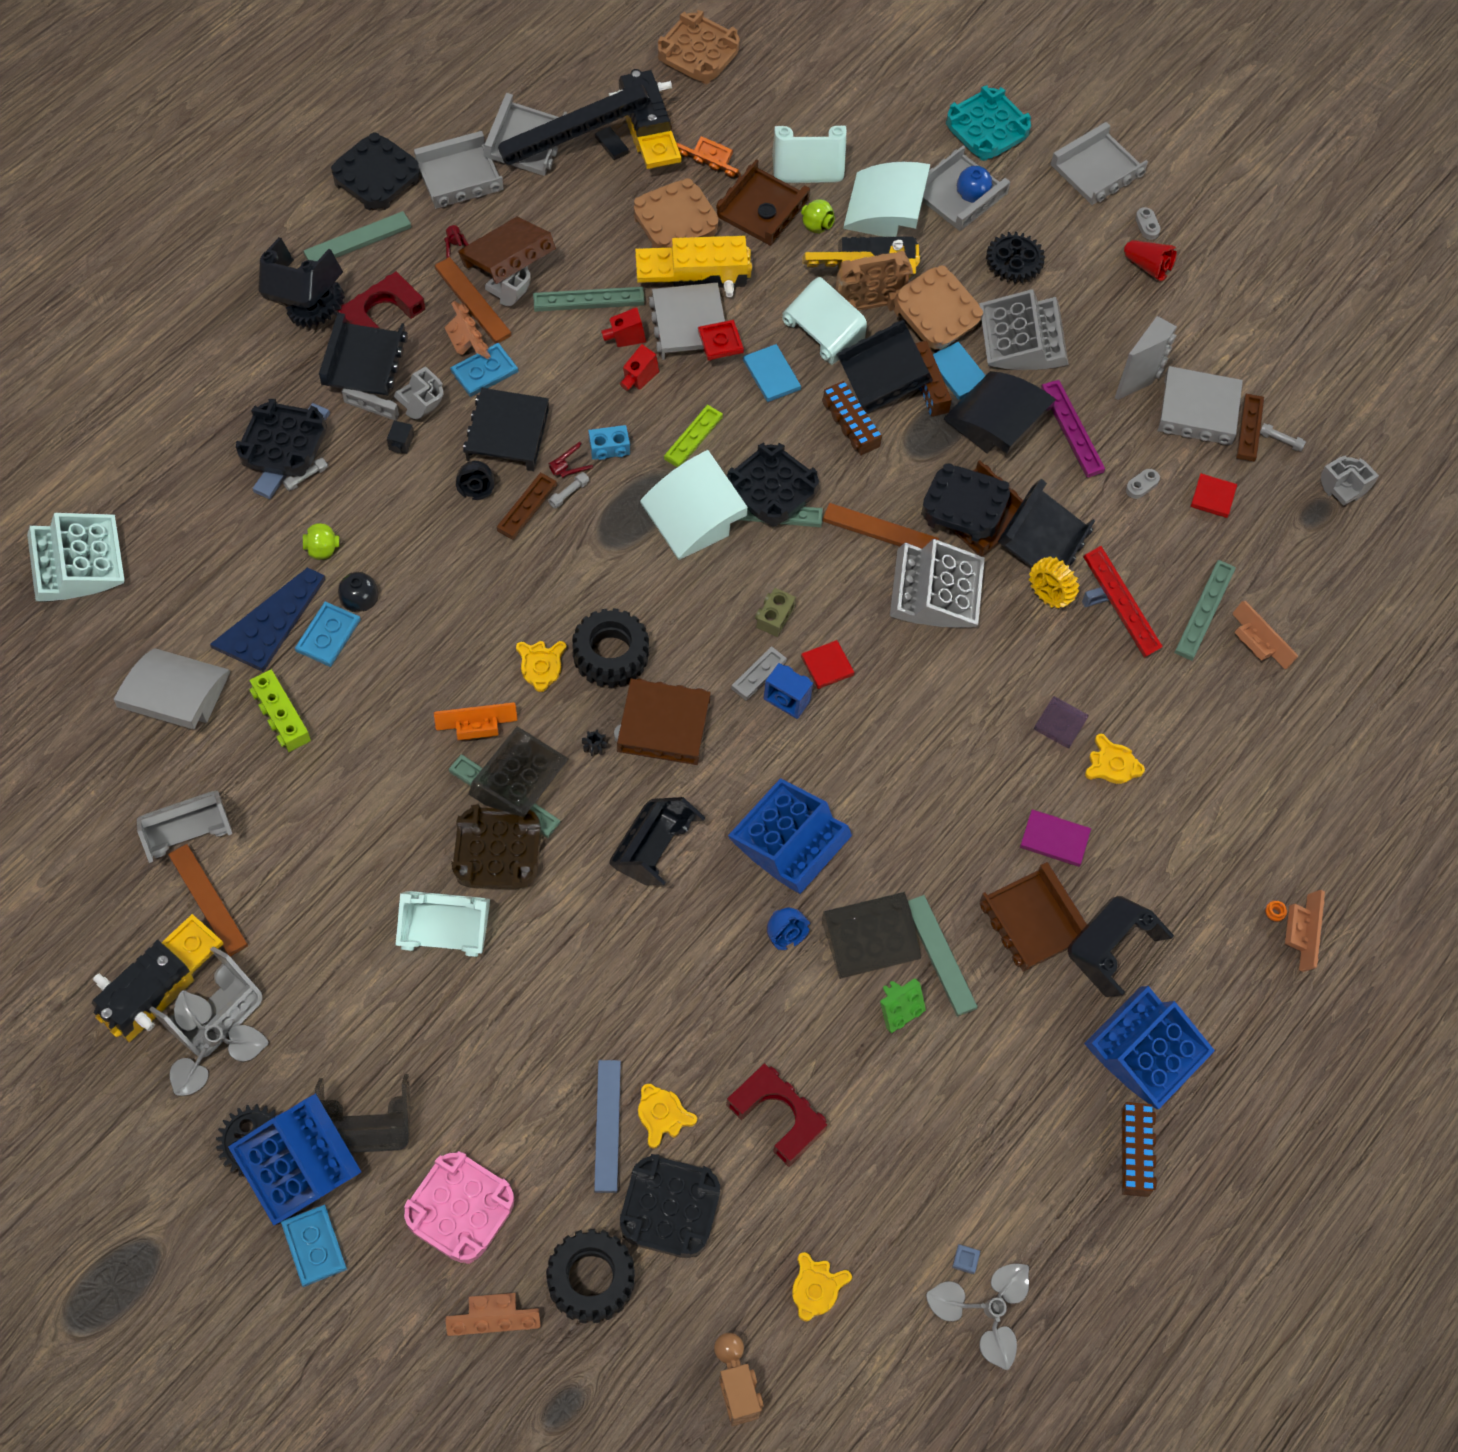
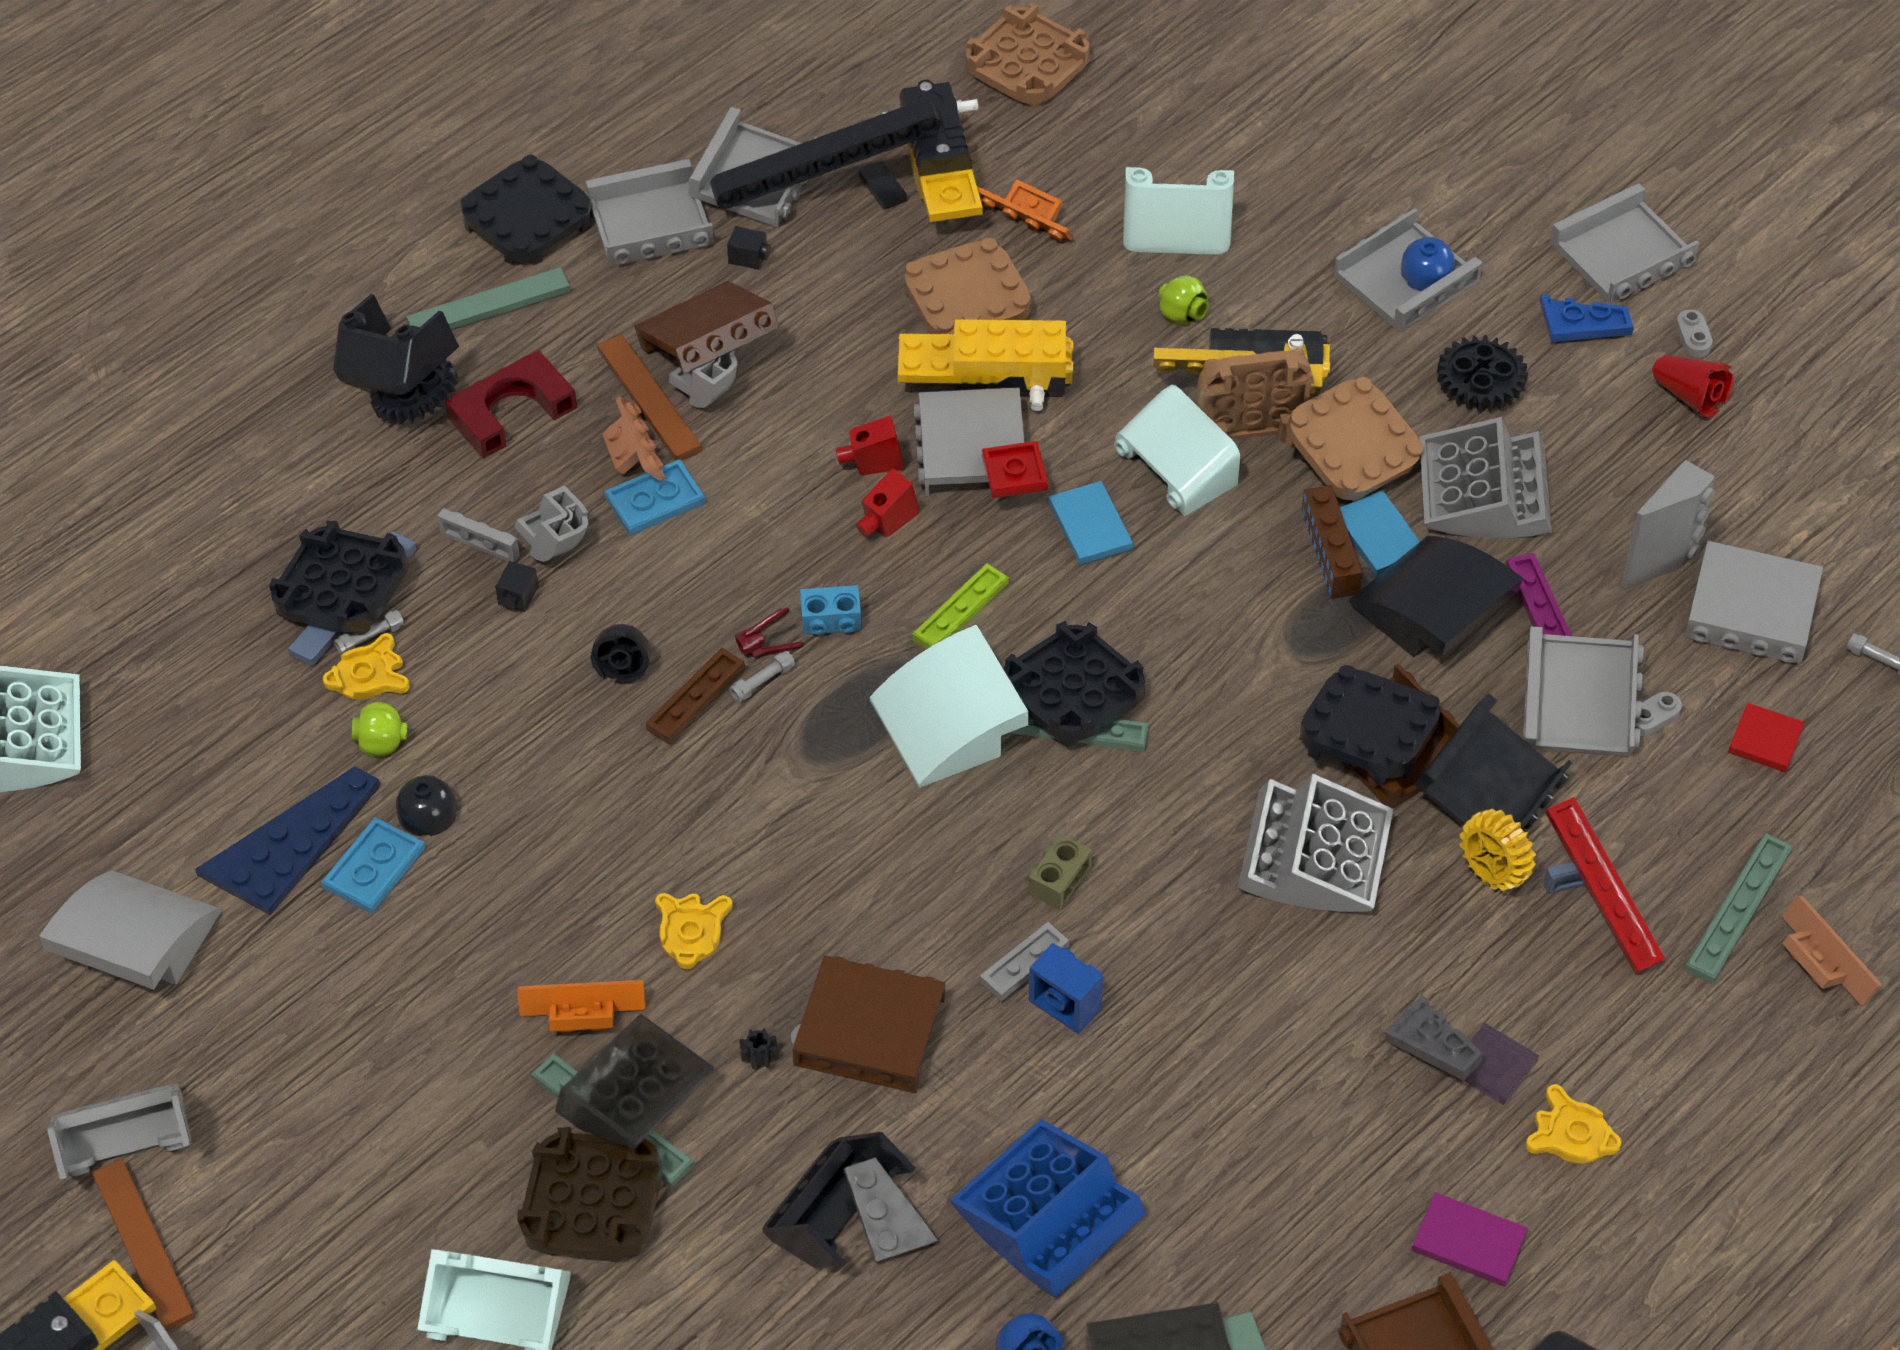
camera: 10 degrees right, 10 degrees down
(279, 710) = (287, 972): lime brick -> none
(307, 501) = (368, 671): none -> yellow tile
(362, 357) = (472, 468): black panel -> none
(455, 237) = (631, 306): dark red plant -> none
(507, 426) = (679, 578): black panel -> none
(527, 192) = (747, 248): none -> black brick
(588, 299) = (823, 403): sand green tile -> none
(610, 625) = (798, 875): black tyre -> none
(687, 846) = (885, 1213): none -> flat silver wing
(753, 189) = (1099, 280): reddish brown panel -> none
(766, 211) = (1106, 290): black piece -> none
(827, 664) = (1133, 954): red tile -> none
(851, 418) = (1206, 593): reddish brown brick -> none
(875, 527) = (1225, 754): dark orange tile -> none
(884, 367) = (1263, 520): black panel -> none
(887, 198) = (1291, 278): light aqua slope -> none
(988, 123) = (1458, 179): teal plate -> none
(1020, 708) = (1433, 1040): none -> flat silver wing
(1070, 218) = (1577, 321): none -> blue wing
(1097, 473) = (1582, 694): none -> light grey panel
(1250, 427) = (1831, 638): reddish brown plate -> none

